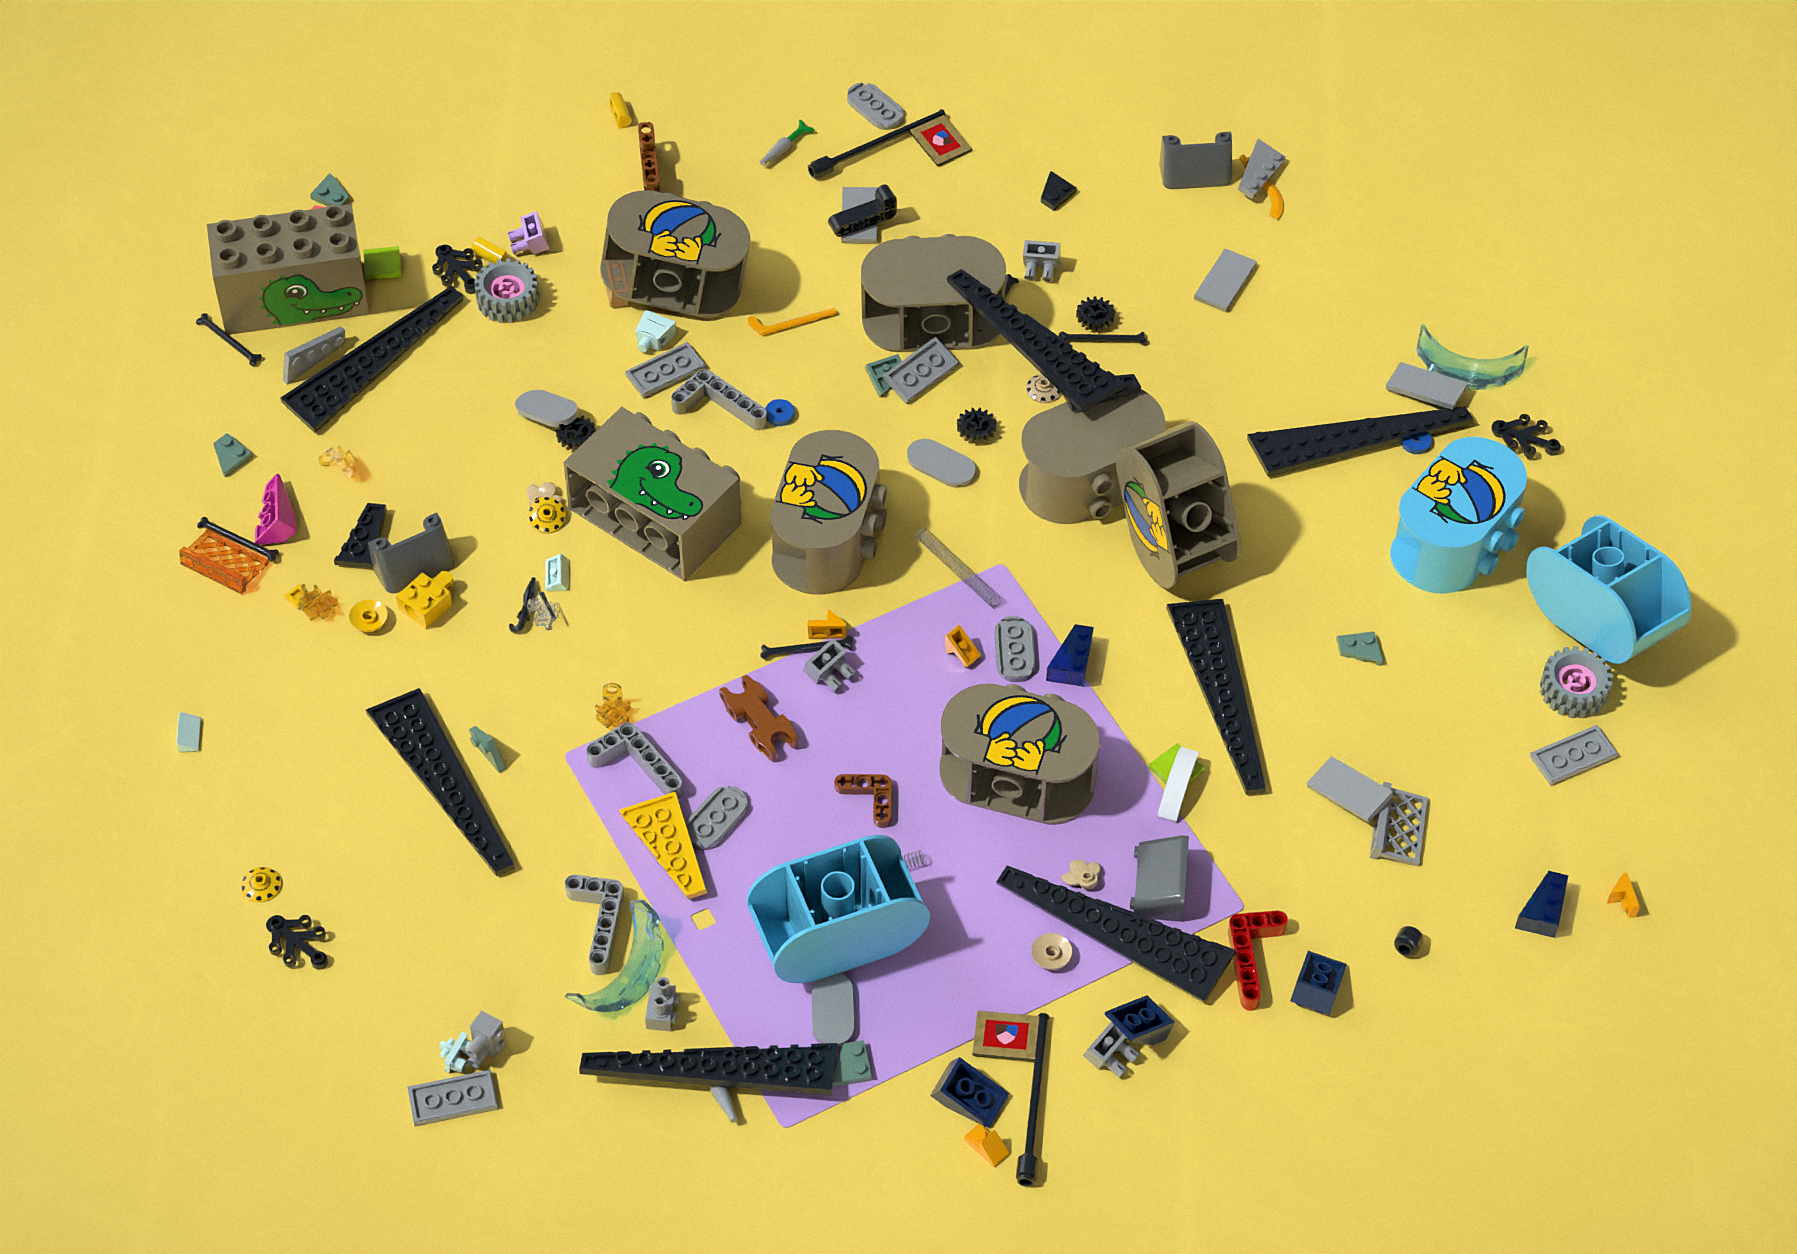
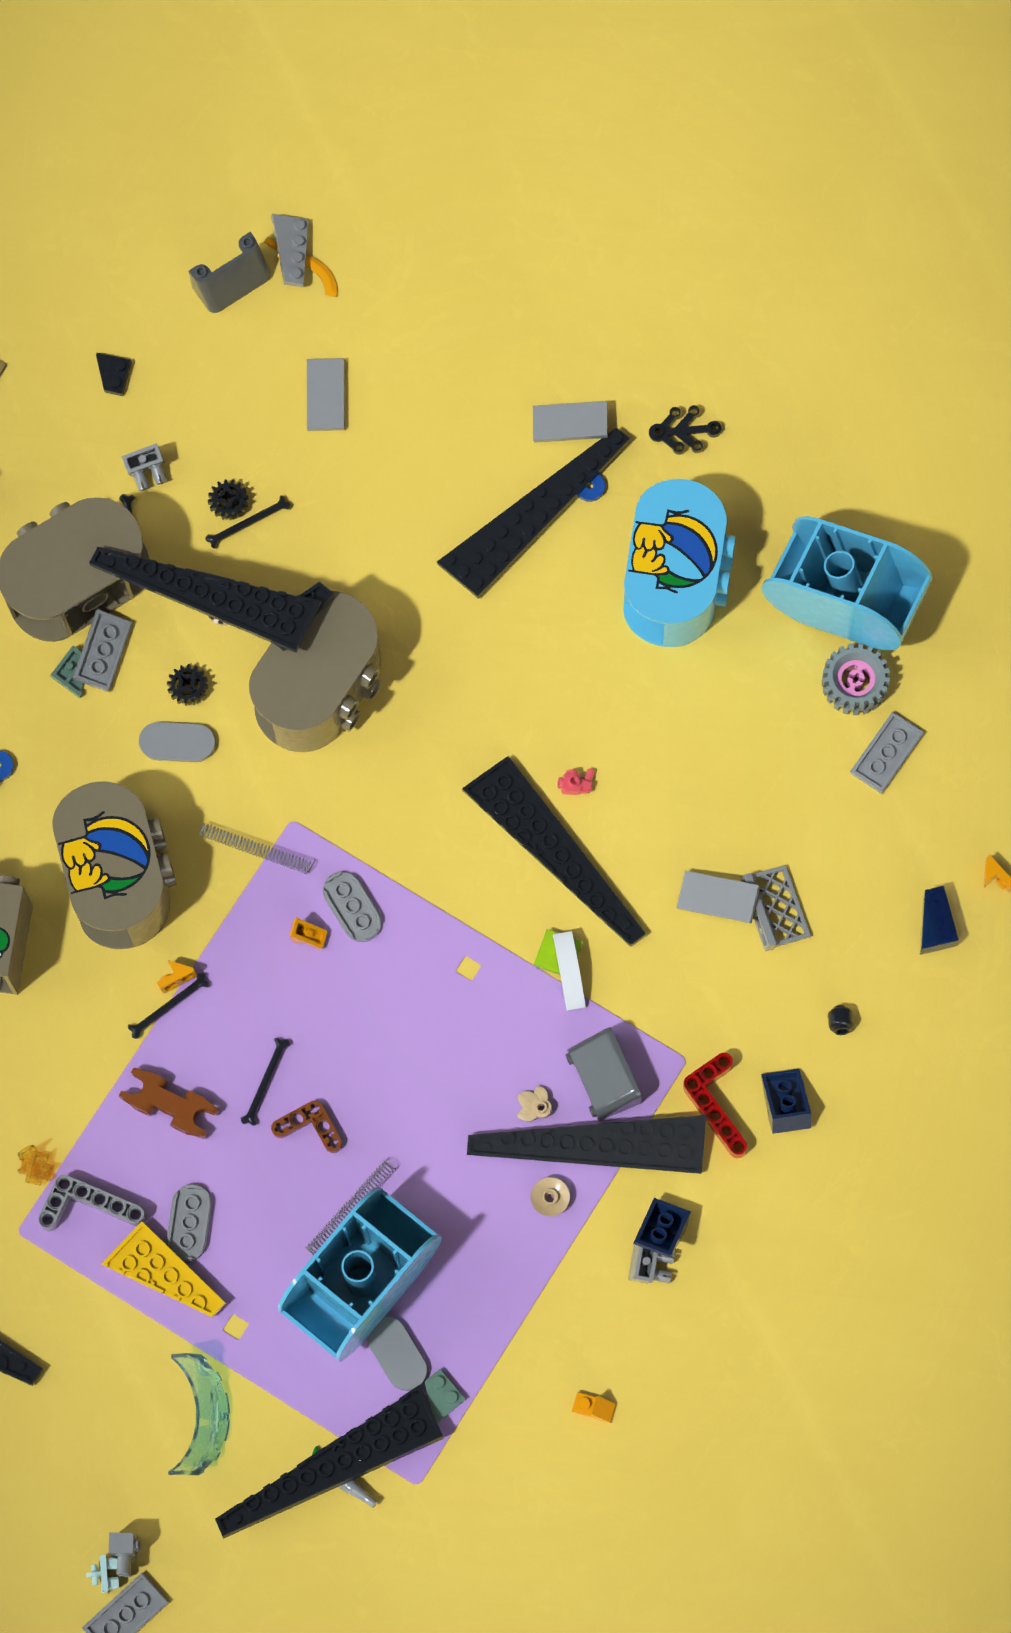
camera: 25 degrees left, 20 degrees up
(603, 896) = (152, 1375): light grey beam -> none
(661, 1005) = (252, 1433): light grey brick -> none
(824, 661) = (195, 1017): light grey brick -> none
(884, 722) = (250, 1116): none -> black piece
(969, 1093) = (554, 1369): dark blue slope -> none
(1019, 753) = (422, 1024): dark tan brick -> none
(1020, 1039) = (565, 1294): flag -> none
(1072, 658) = (411, 891): clear blue wedge -> none
(1178, 502) = (429, 697): dark tan brick -> none
(1268, 646) = (572, 783): none -> coral piece
(1360, 646) = (651, 739): sand green wing -> none
(1477, 372) = (595, 387): clear light blue windscreen -> none

